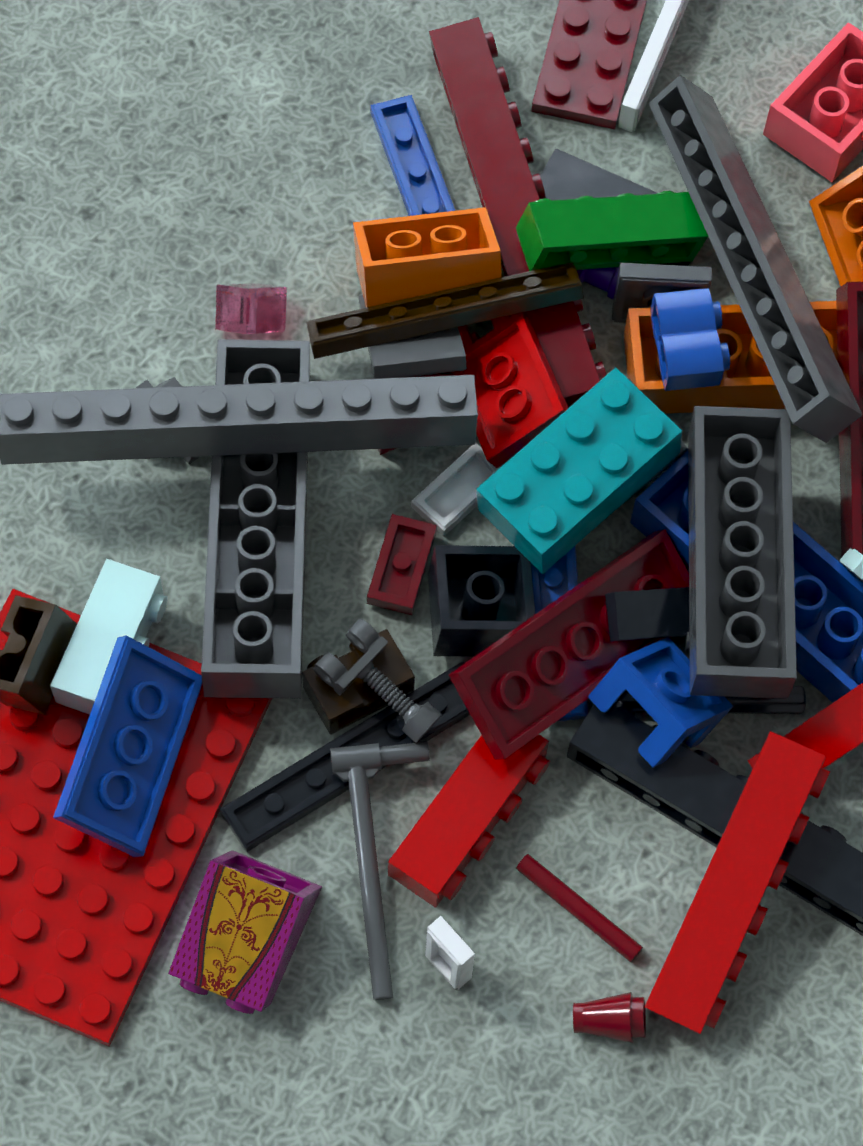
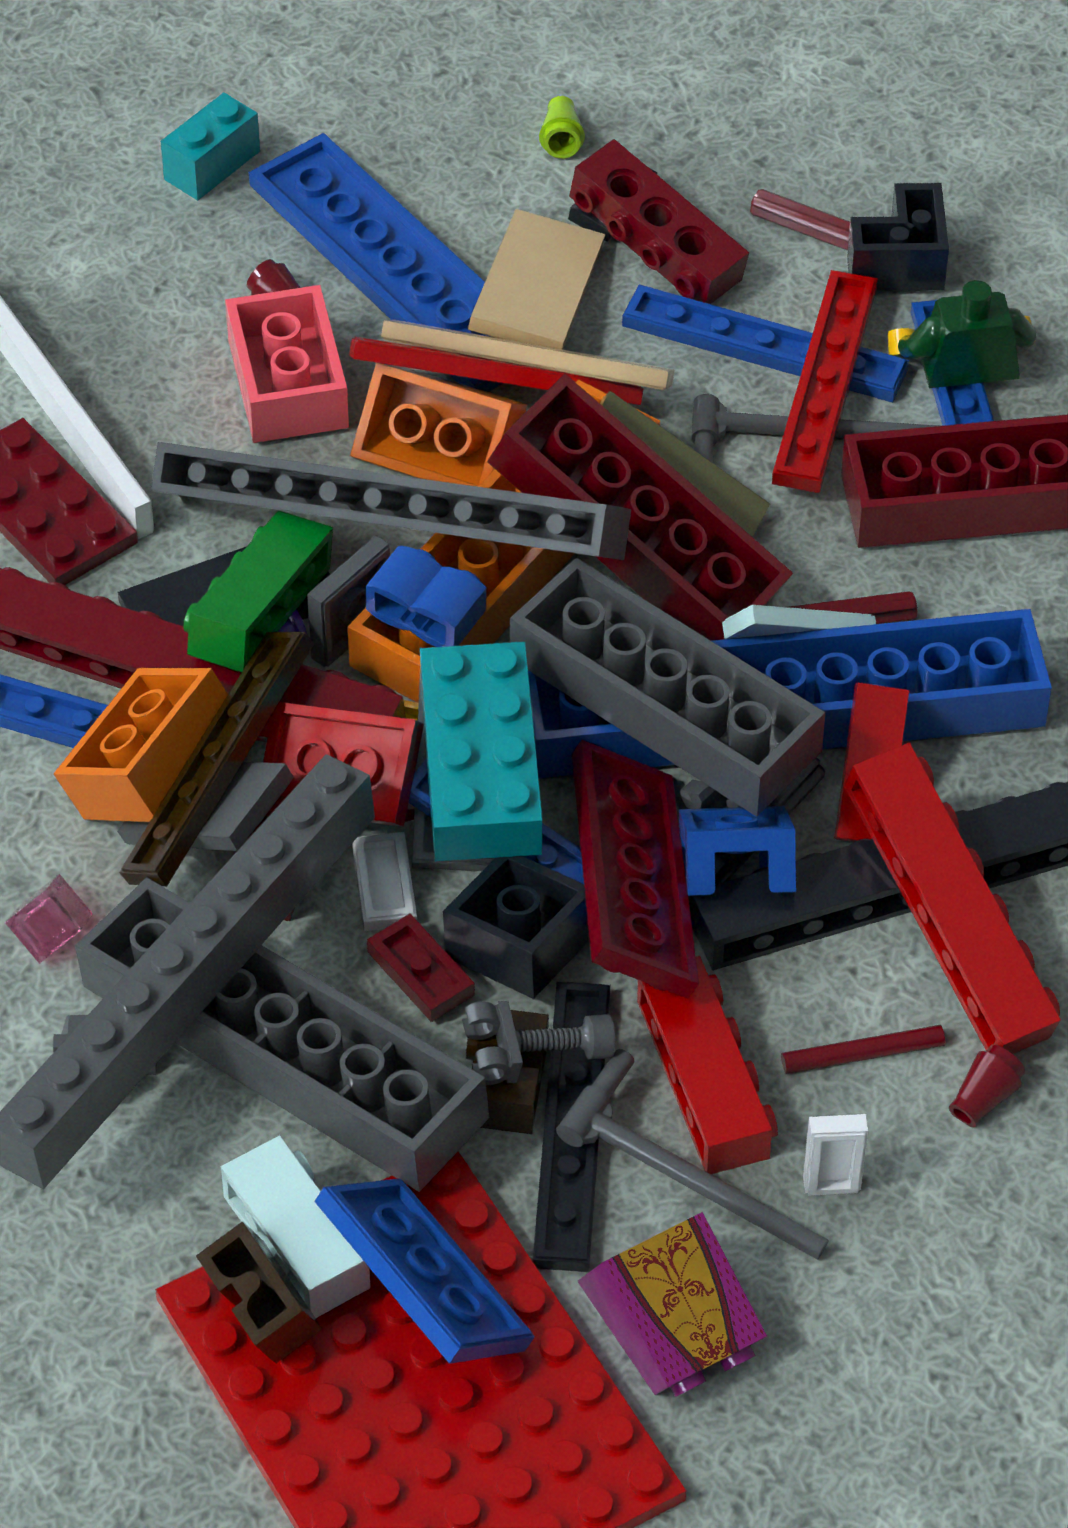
camera: 50 degrees left, 15 degrees down
(648, 613) = (650, 802): black tile -> none

